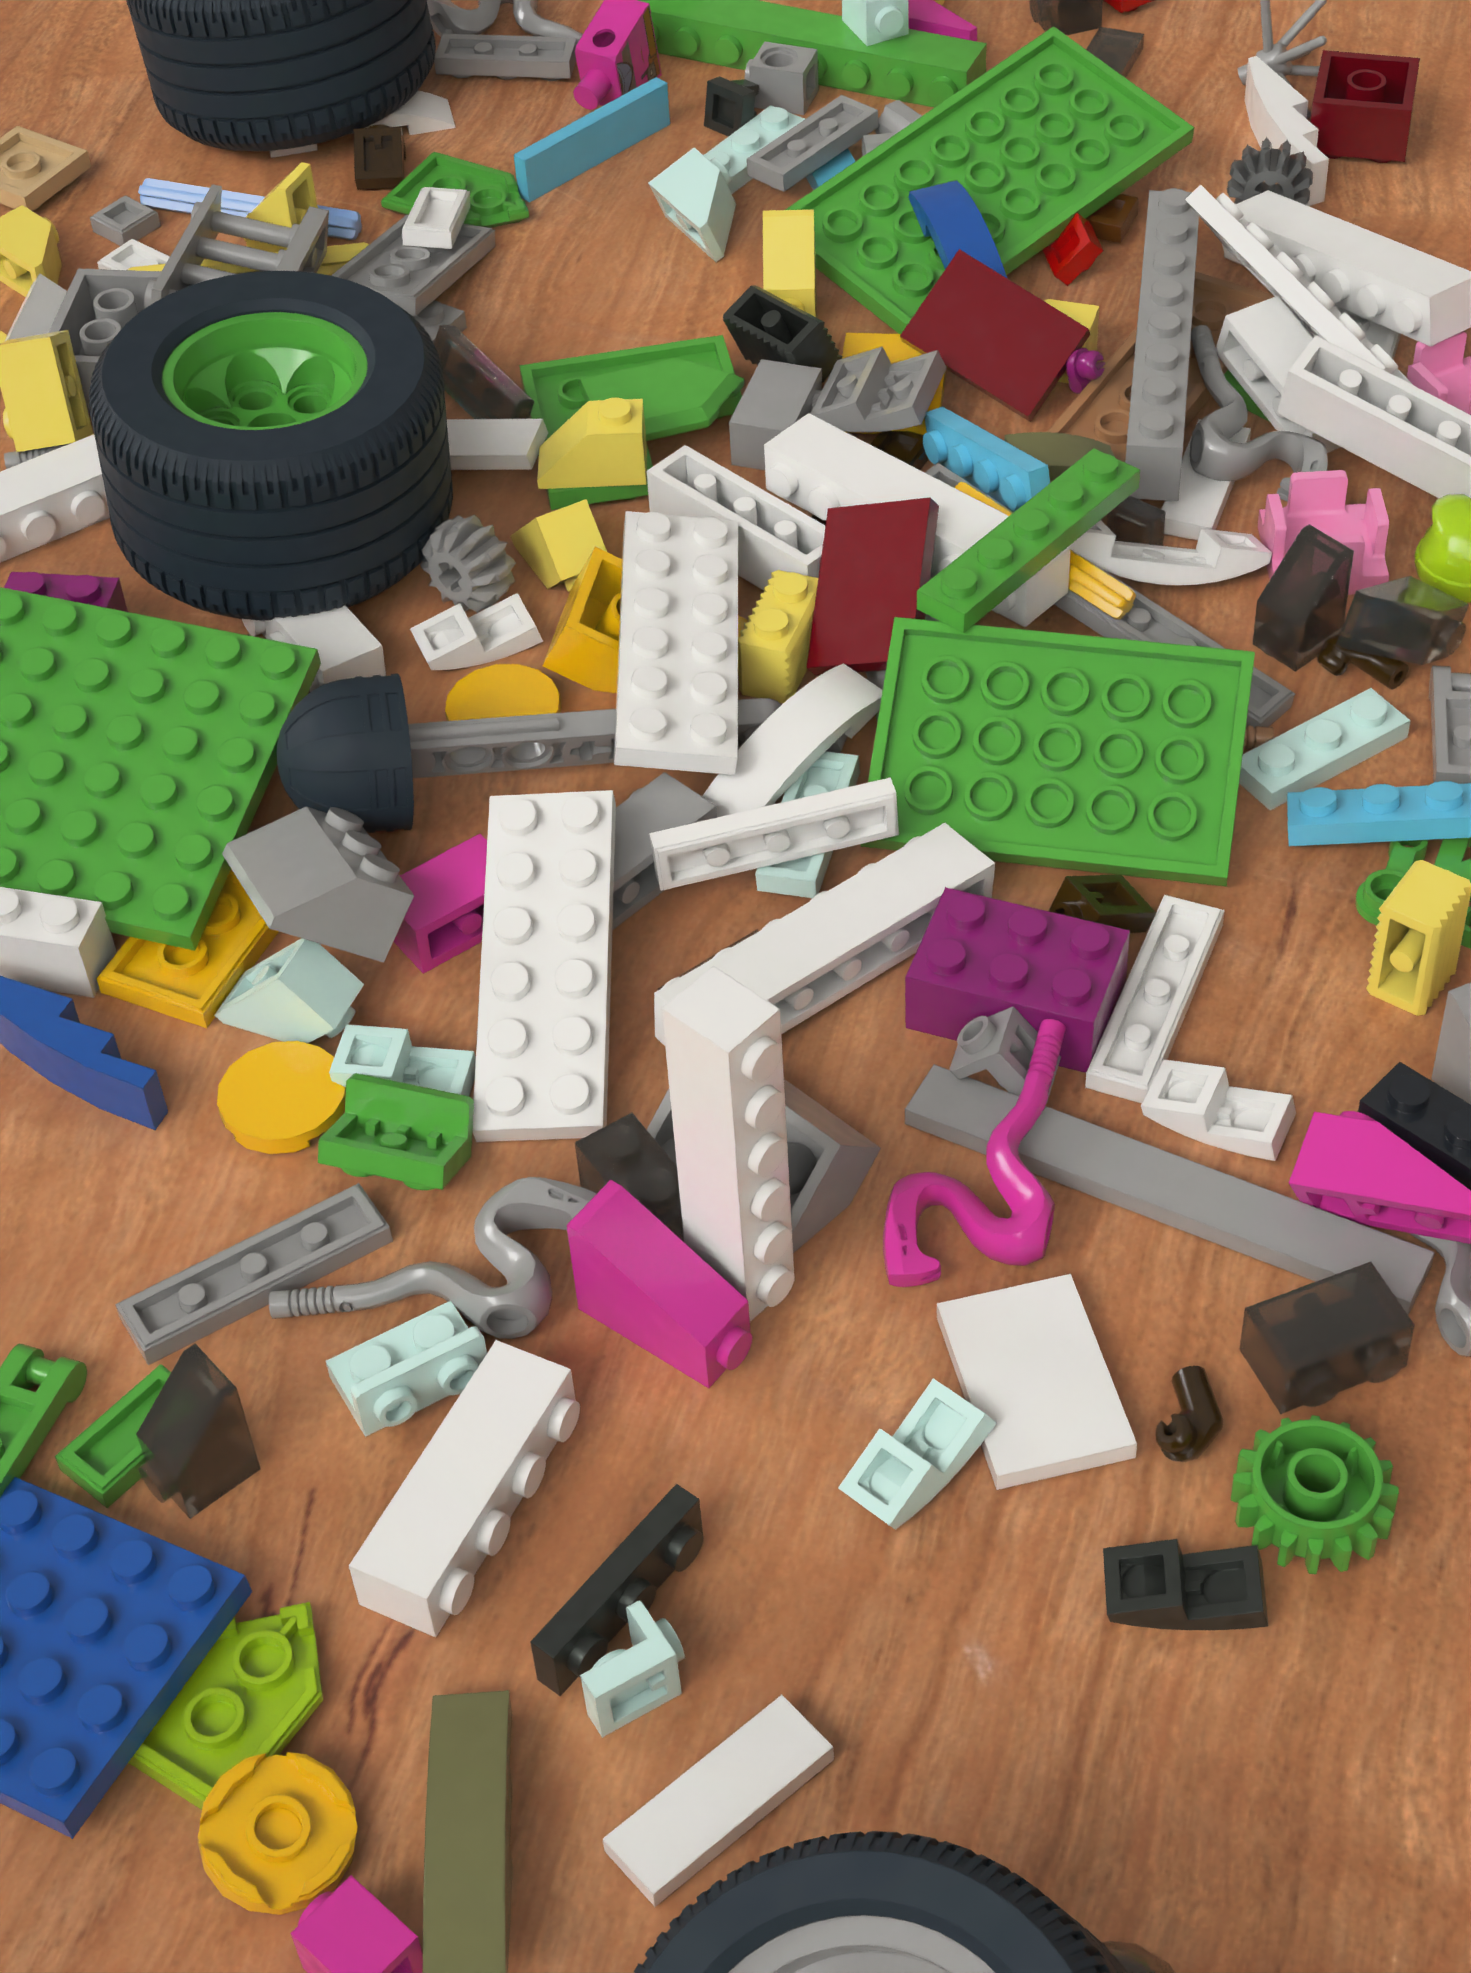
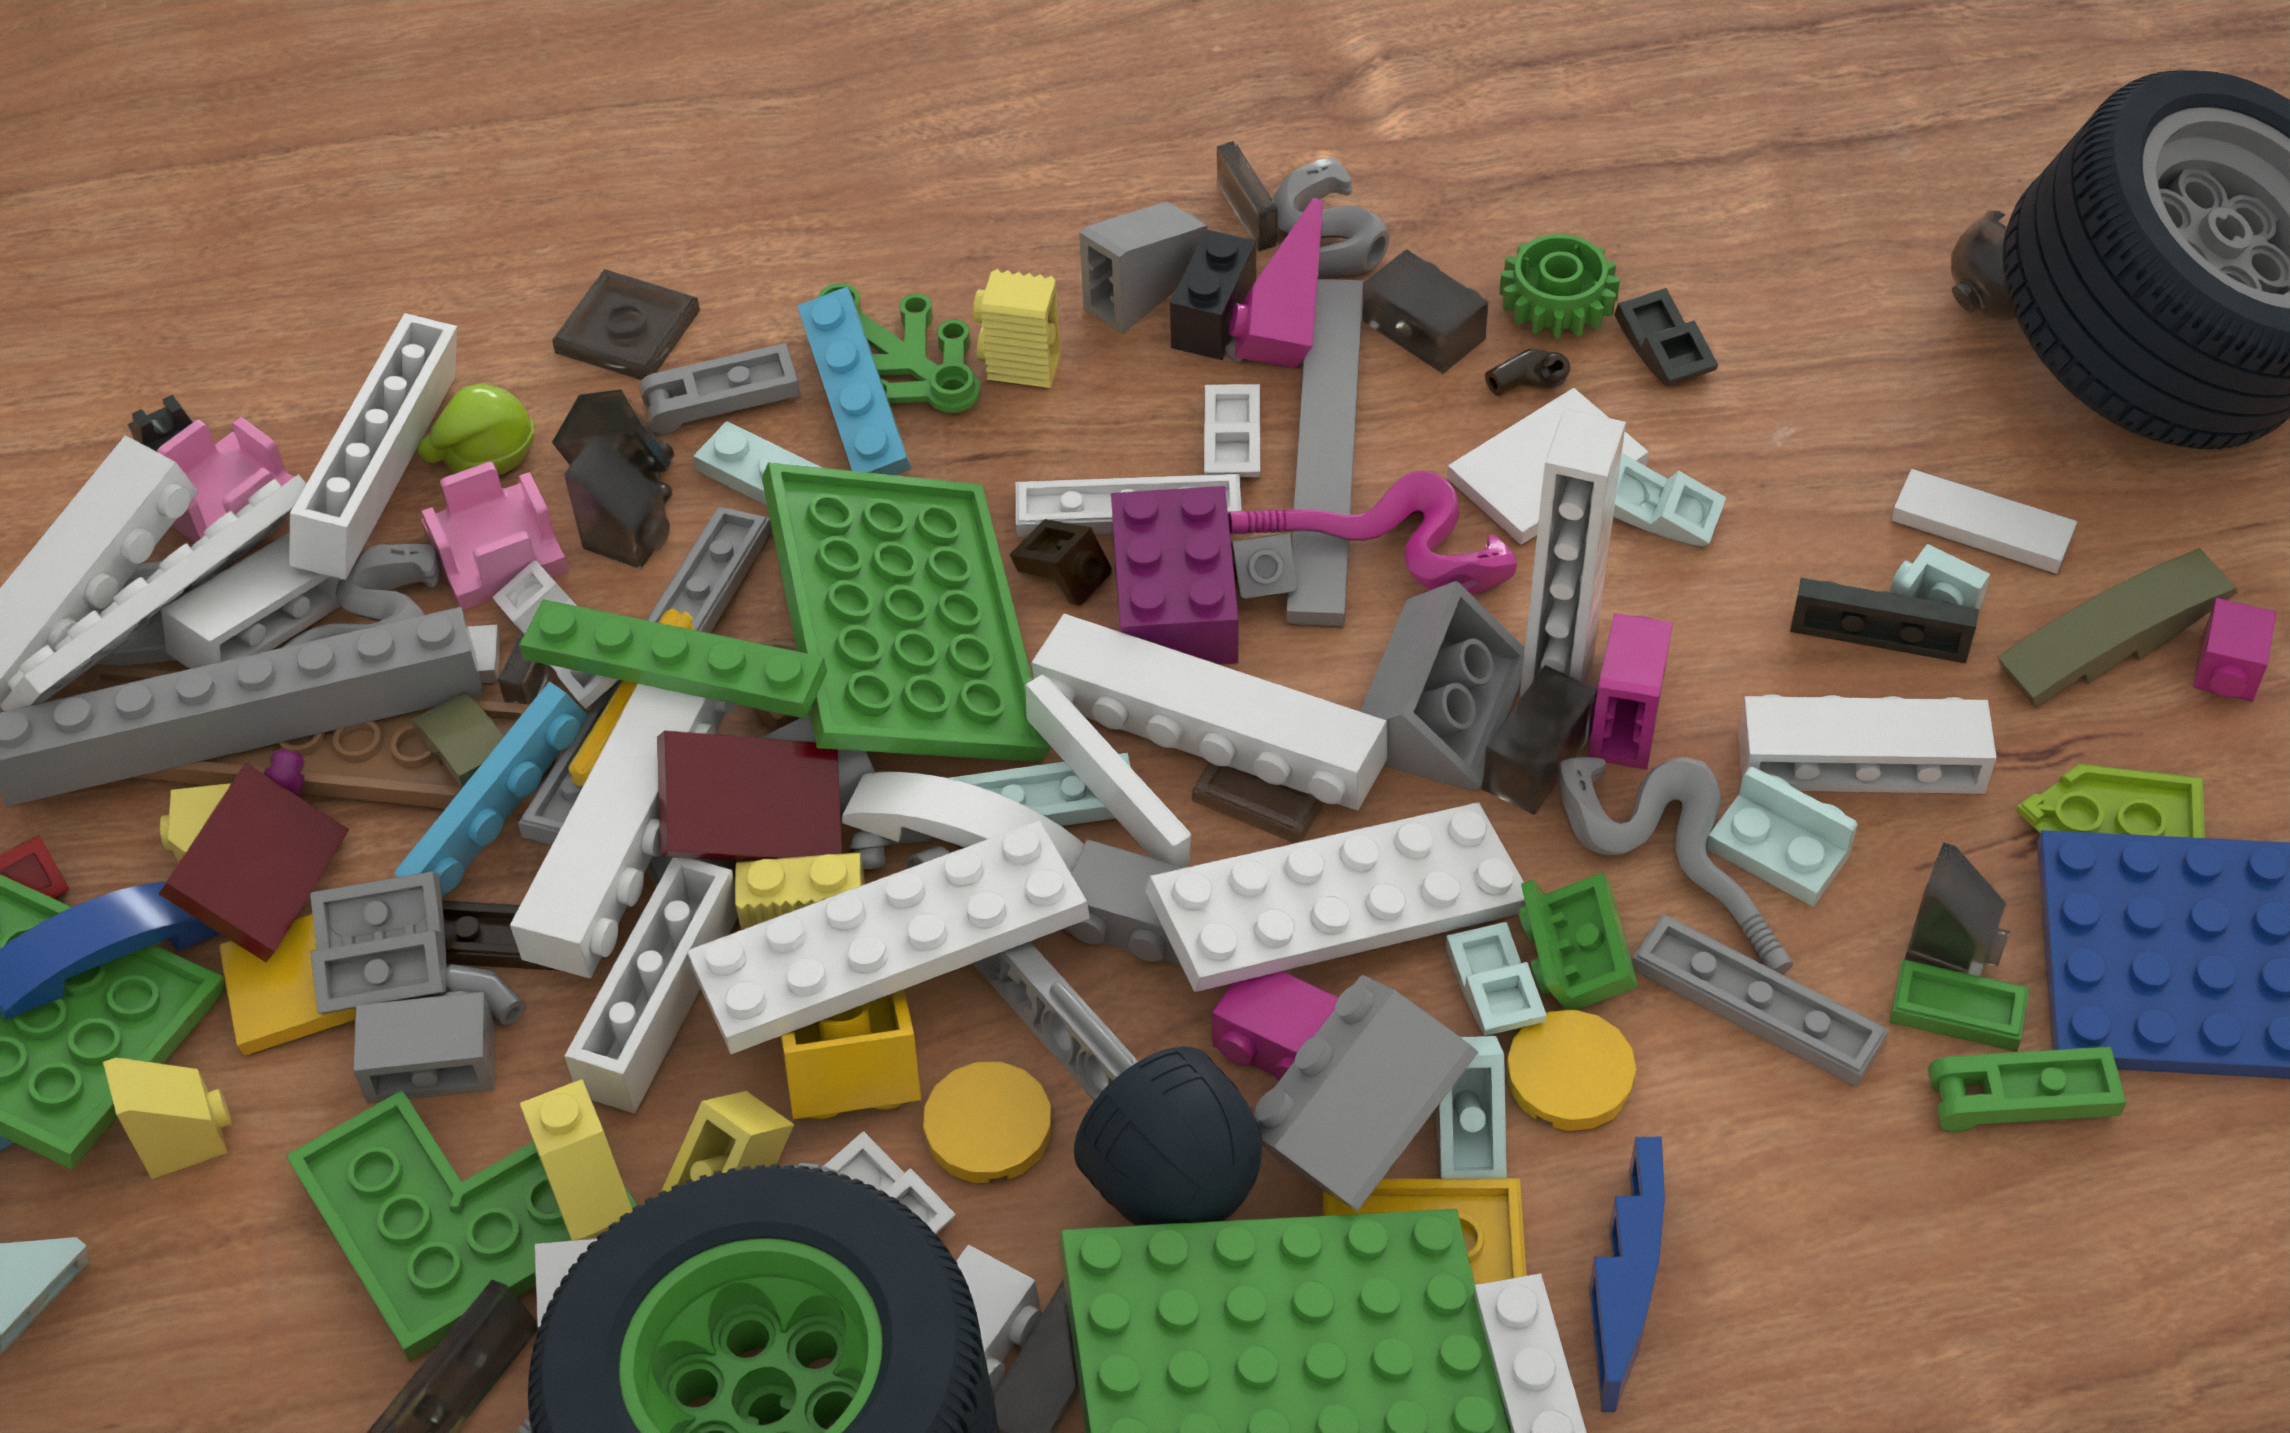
camera: 115 degrees left, 5 degrees up
(277, 1832) = (2191, 738): yellow tile -> none
(674, 392) = (445, 1163): bright green tile -> none
(779, 332) = (293, 1077): pearl dark grey brick -> none

